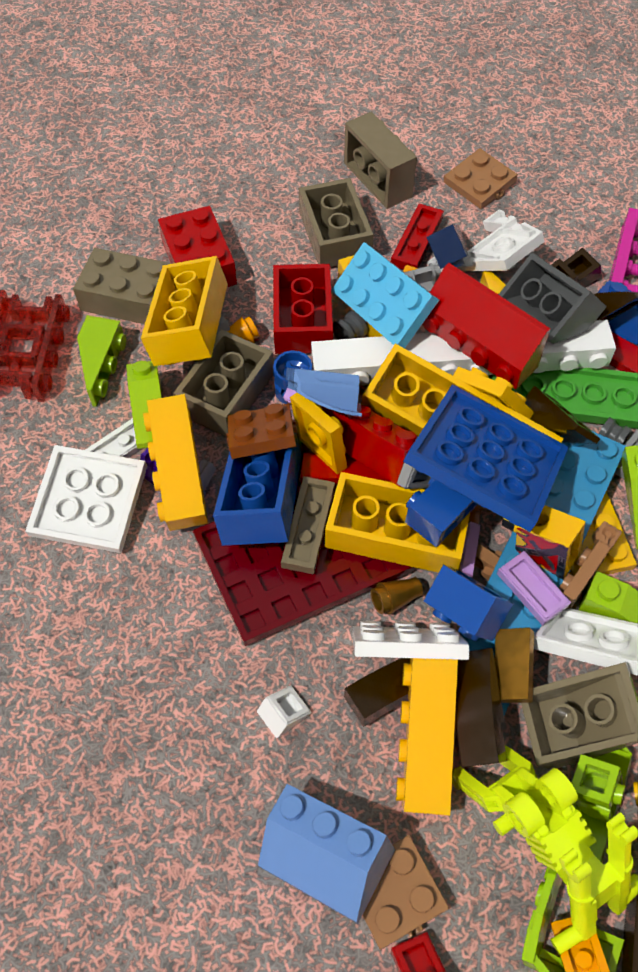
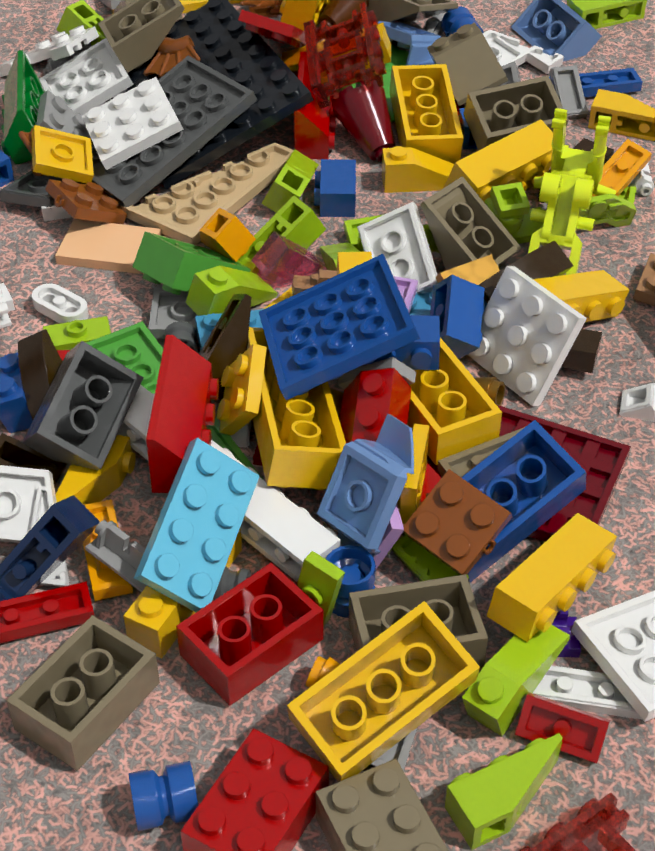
camera: 130 degrees left, 15 degrees down
(88, 417) = (581, 731): none -> red plate
(243, 223) = (163, 795): none -> blue wheel
(295, 339) = (321, 582): none -> lime plate

